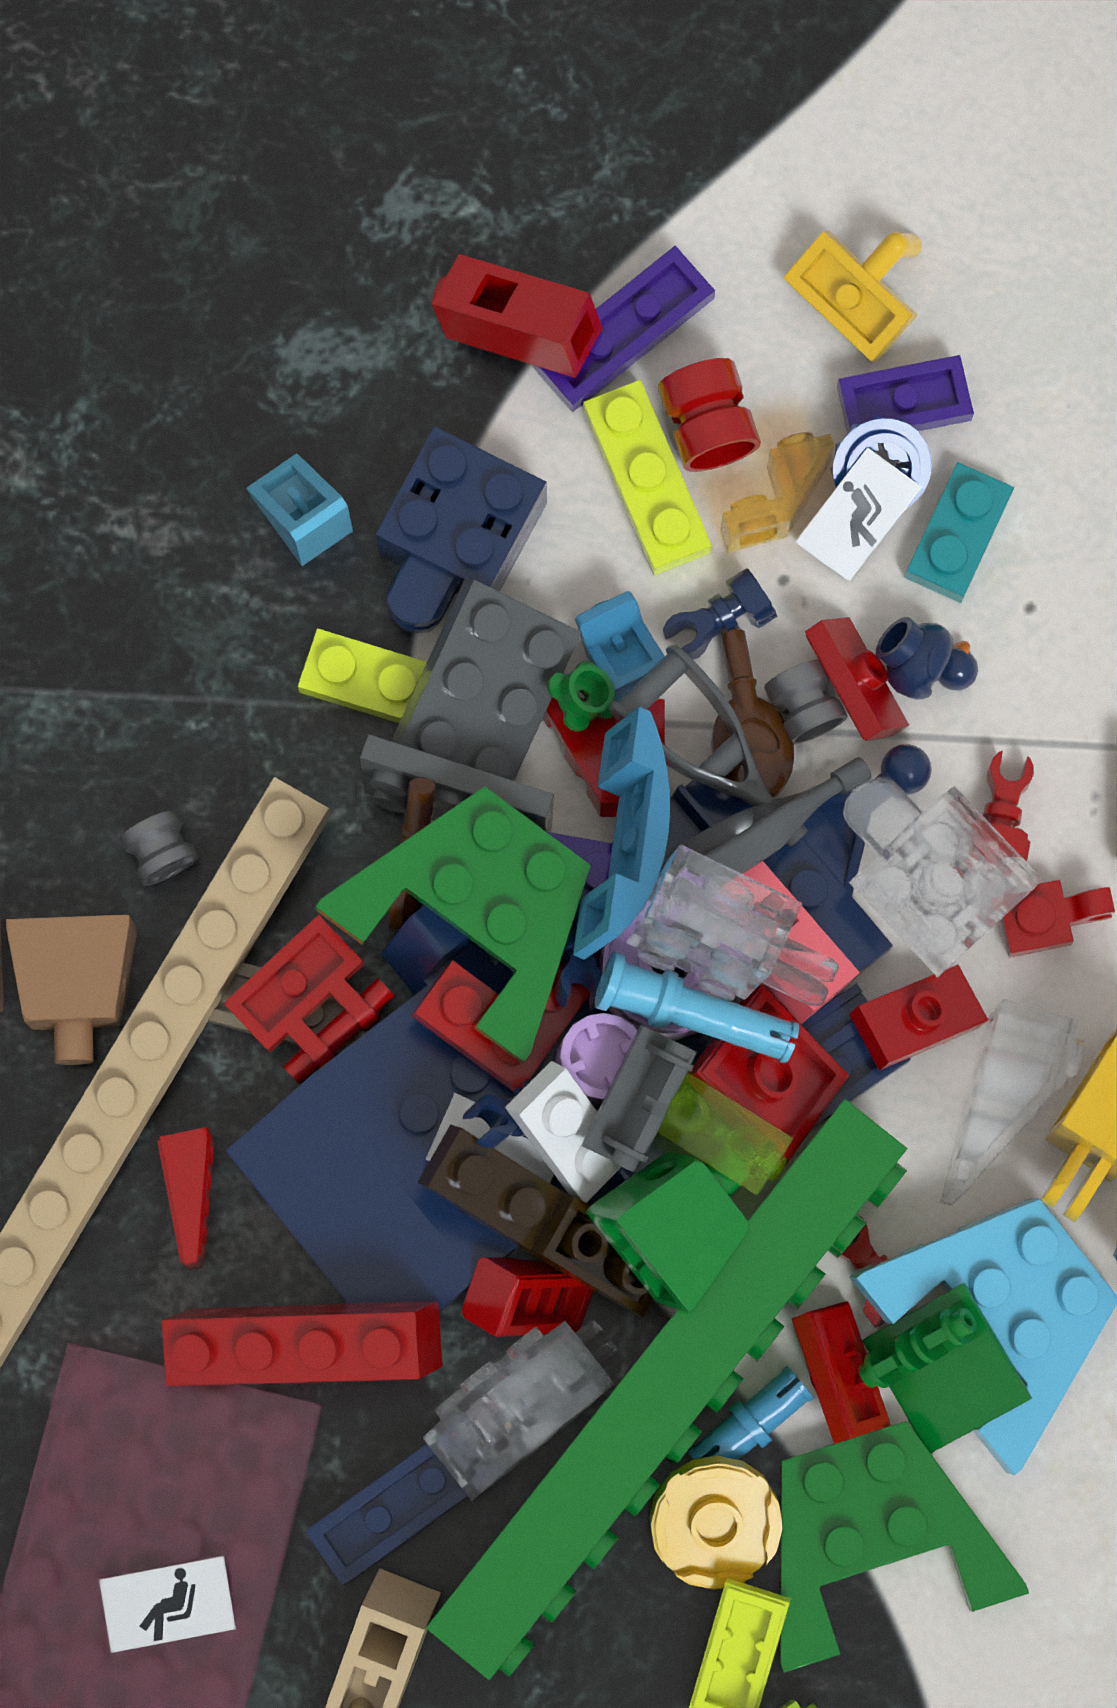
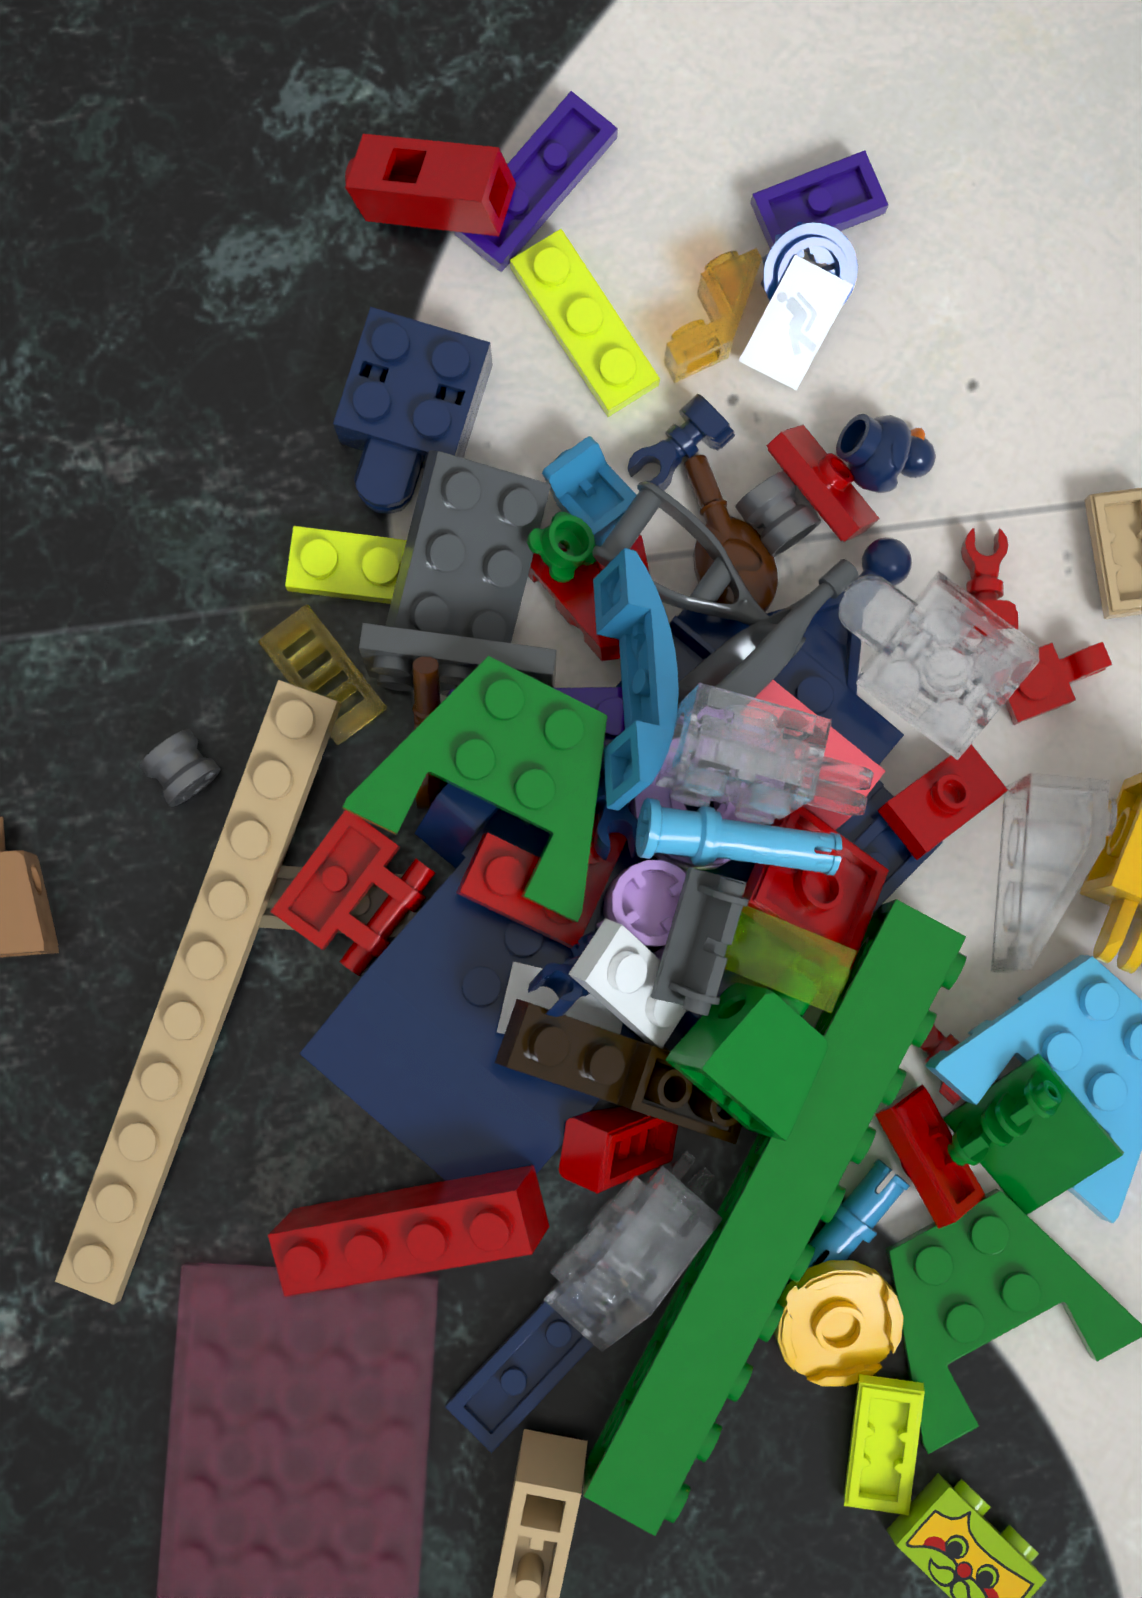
camera: 15 degrees left, 5 degrees up
(72, 977) = (118, 909): medium nougat torso -> none
(167, 1604) = (325, 1503): white sticker -> none
(188, 1177) = (268, 1088): red slope -> none
(296, 731) = (294, 628): none -> clear yellow slope
(302, 508) = (257, 411): medium azure slope -> none
(705, 404) = (629, 242): red wheel -> none
(853, 291) = (750, 107): yellow plate -> none
(959, 532) = (893, 324): teal plate -> none

